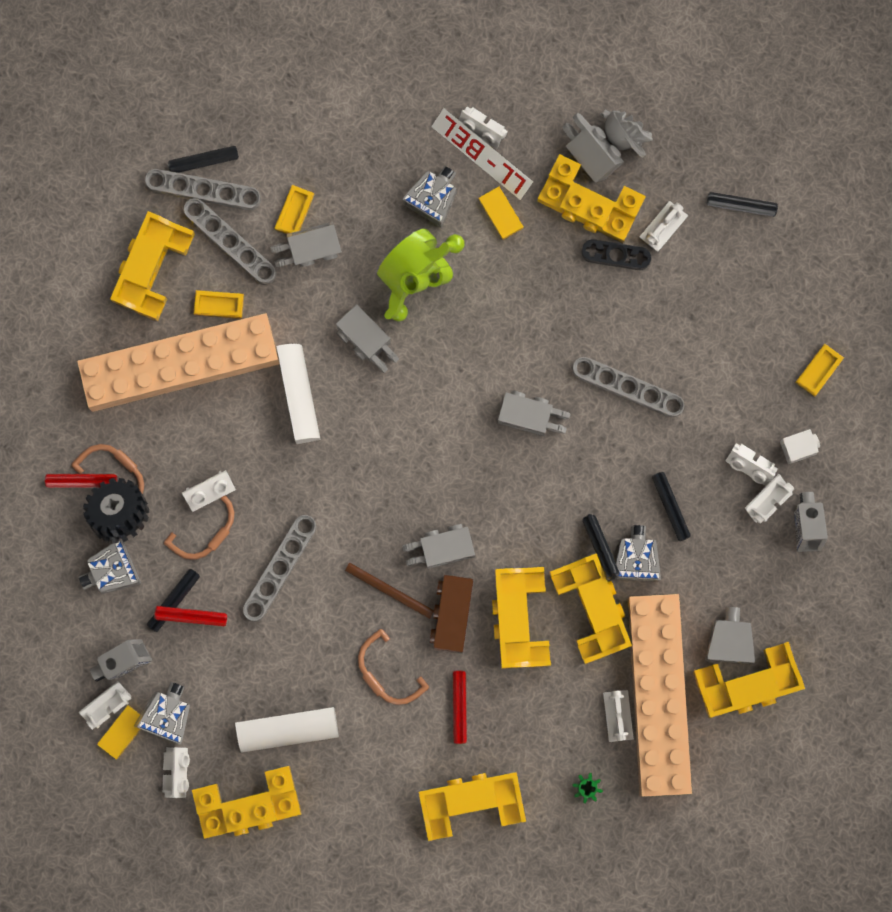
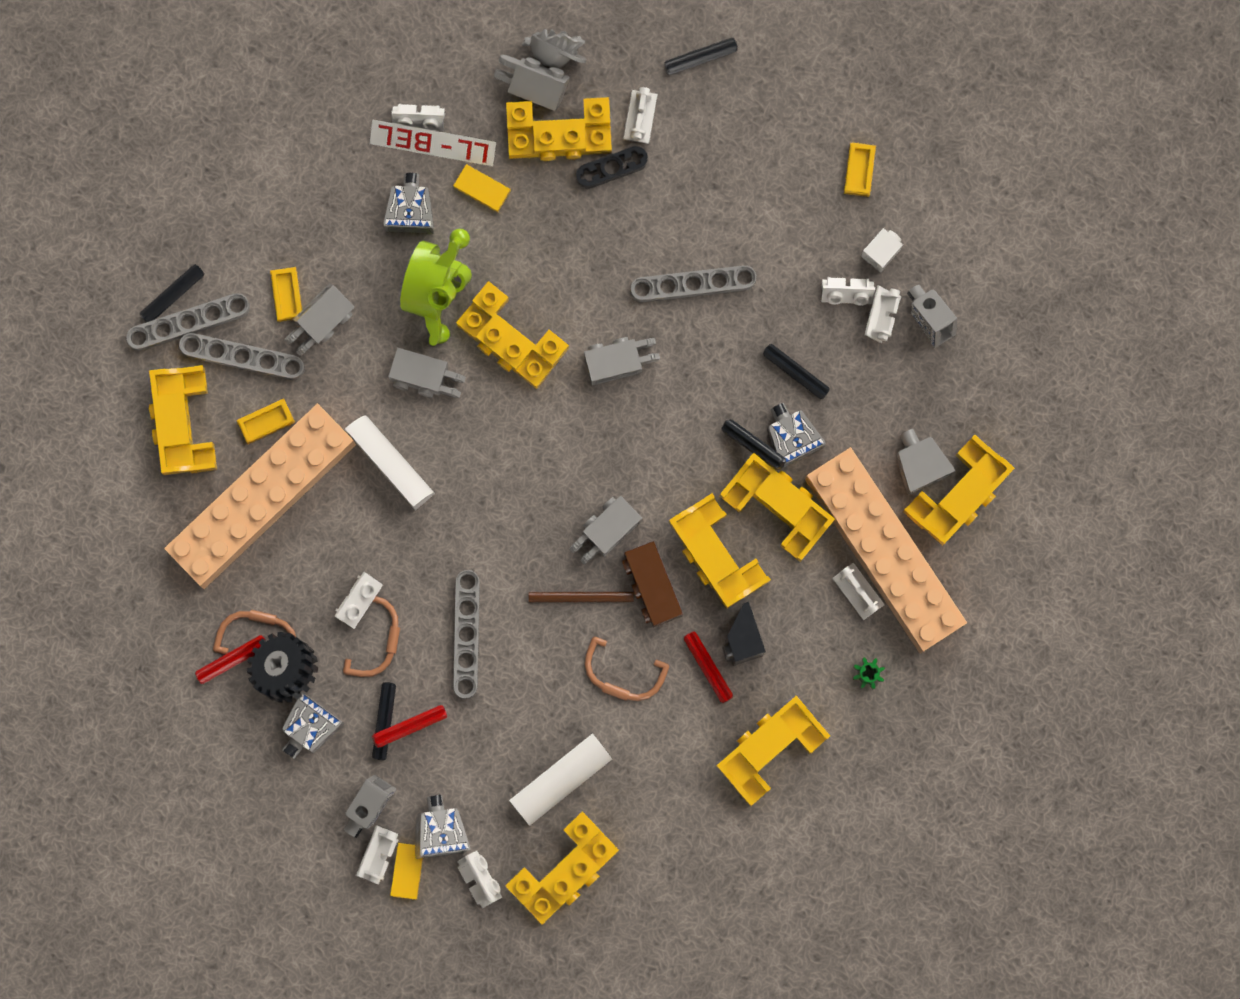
camera: 35 degrees left, 0 degrees up
(449, 356) = (507, 343): none -> yellow bracket
(500, 700) = (744, 638): none -> black slope

